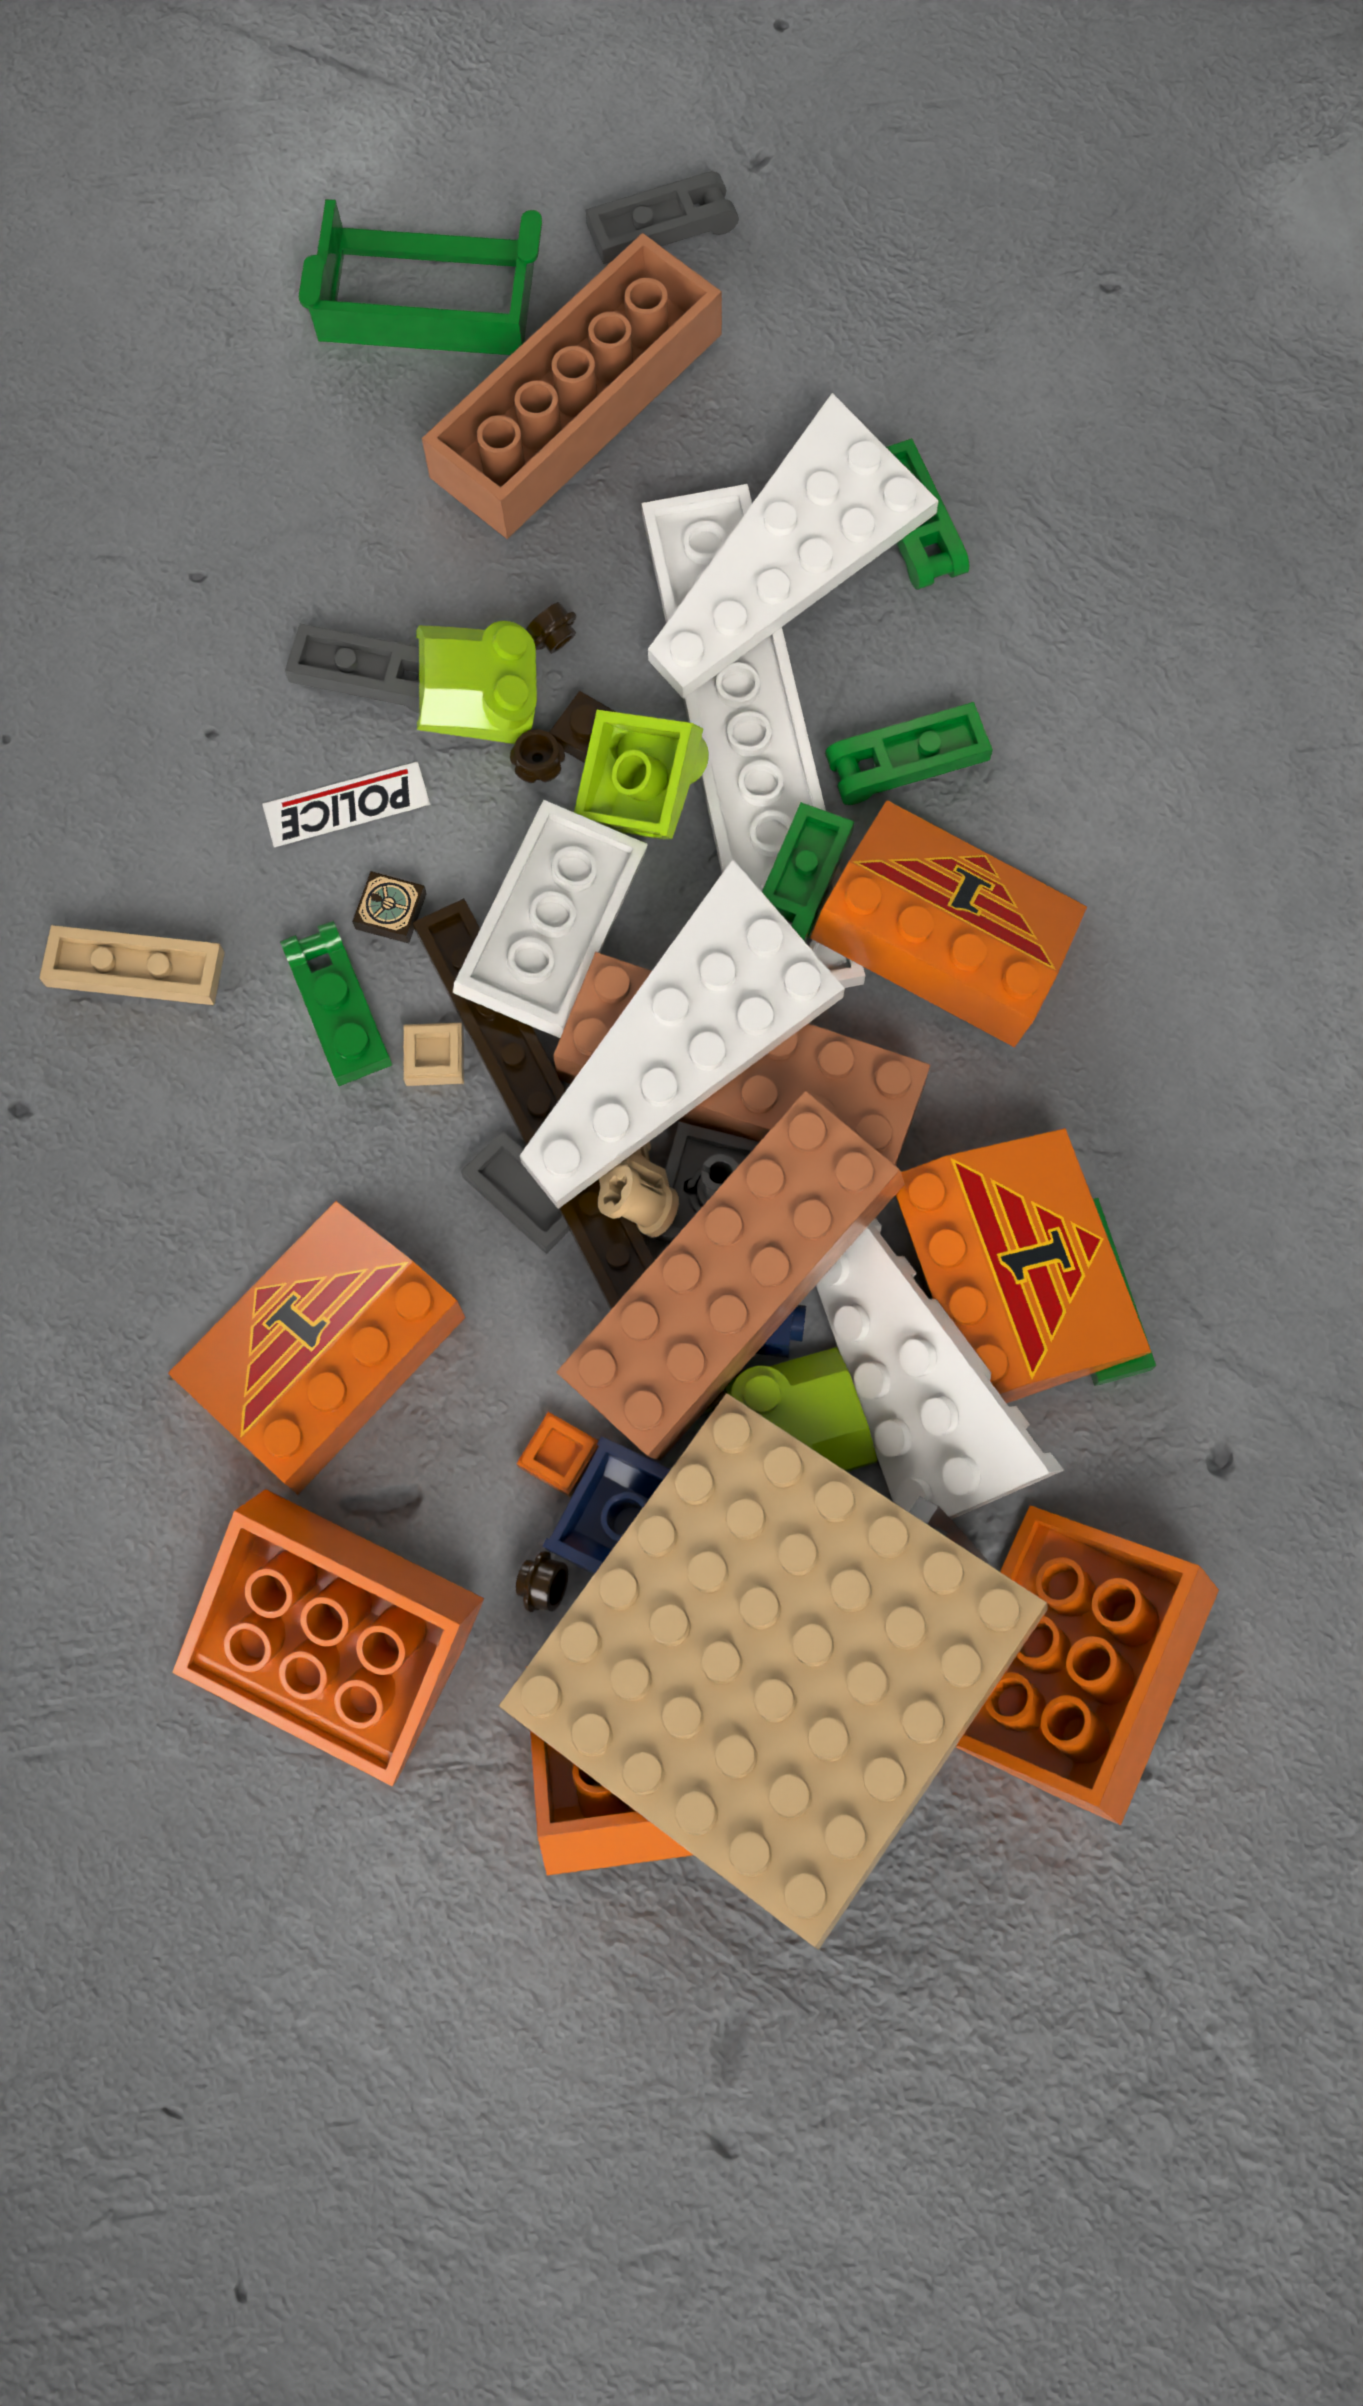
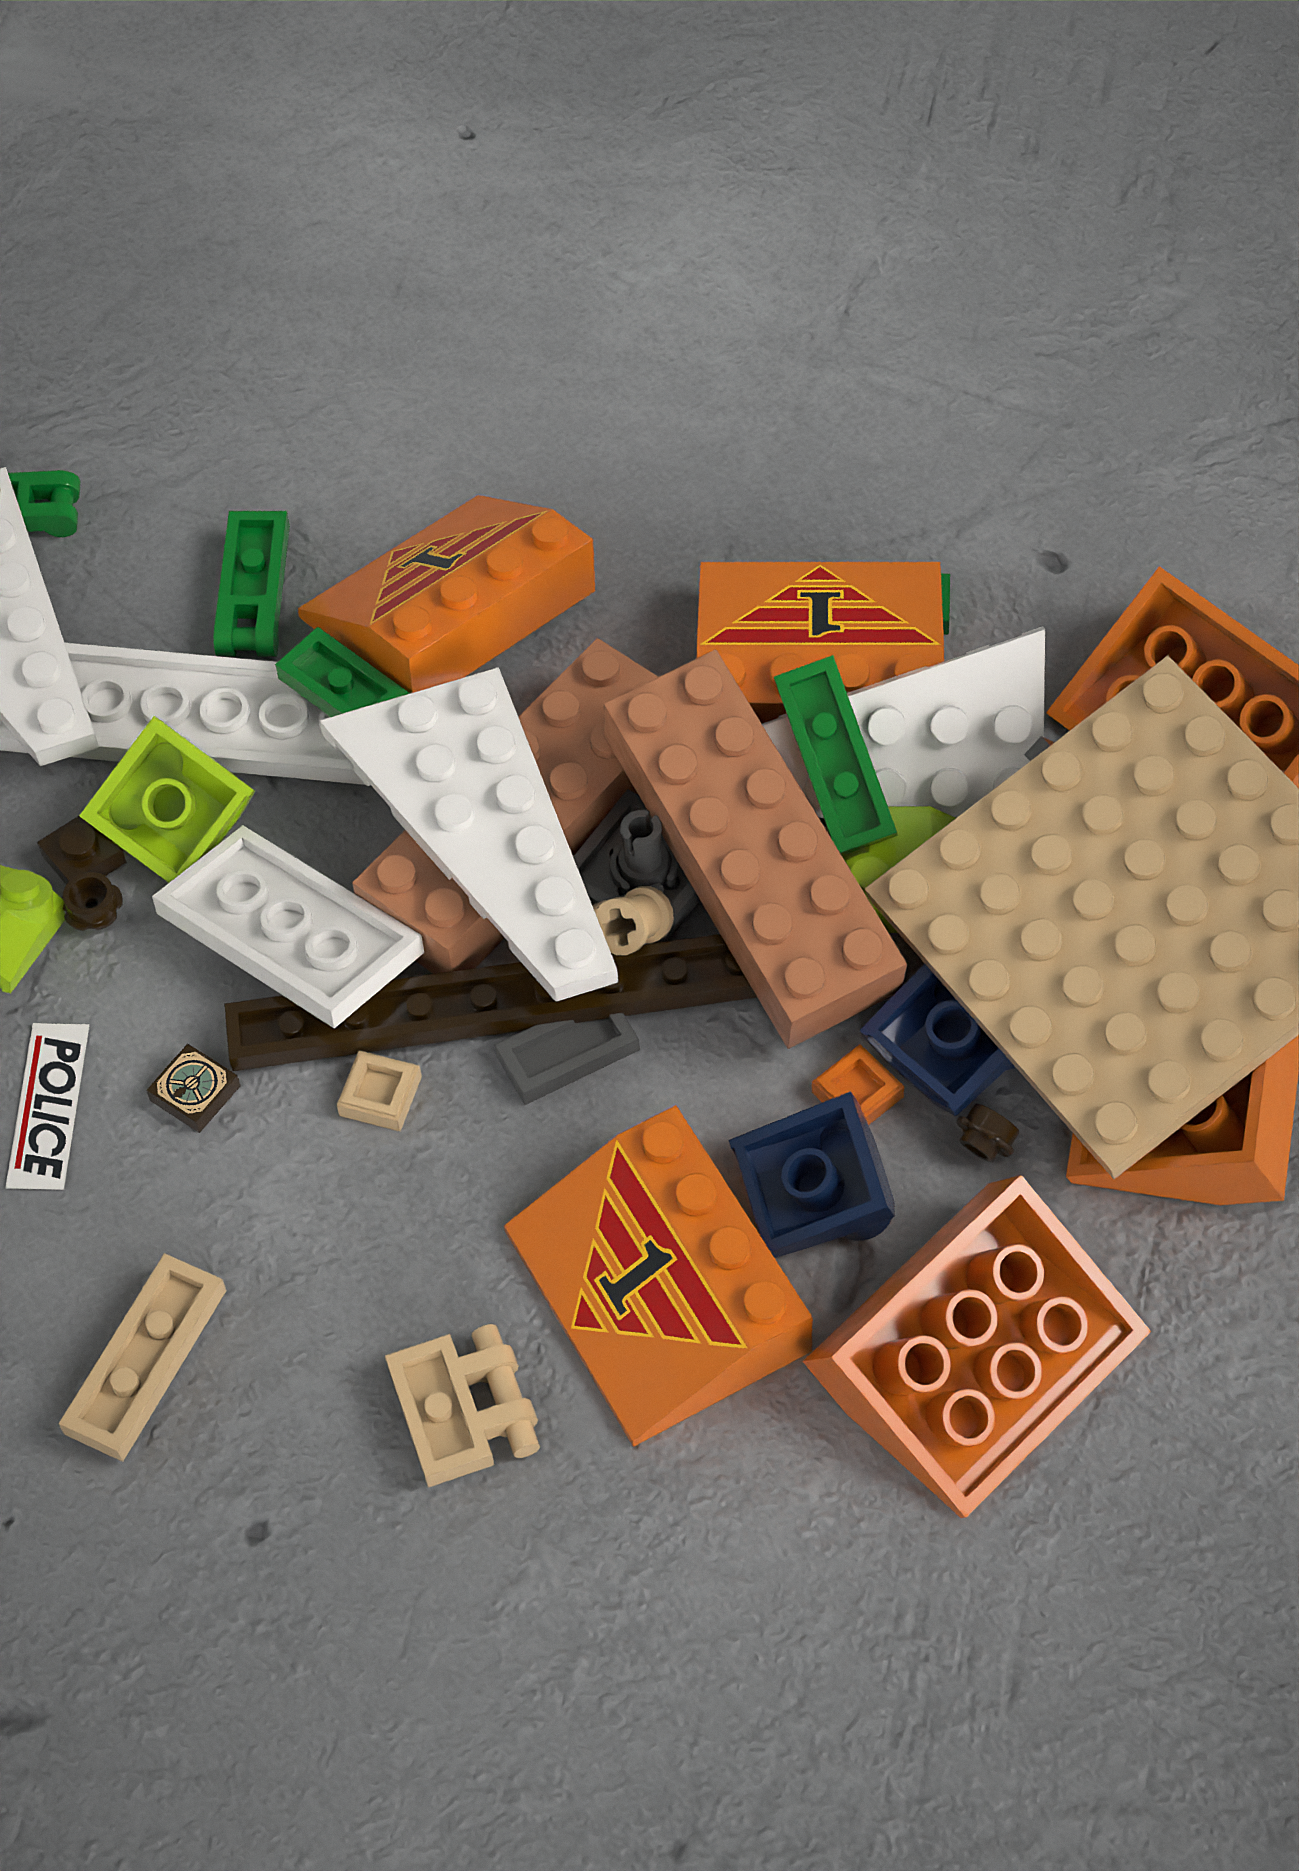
camera: 70 degrees left, 15 degrees down
(148, 1210) = (441, 1410): none -> tan plate
(336, 1005) = (279, 1168): green plate -> none
(442, 1446) = (815, 1177): none -> dark blue slope
(861, 1320) = (835, 755): none -> green plate

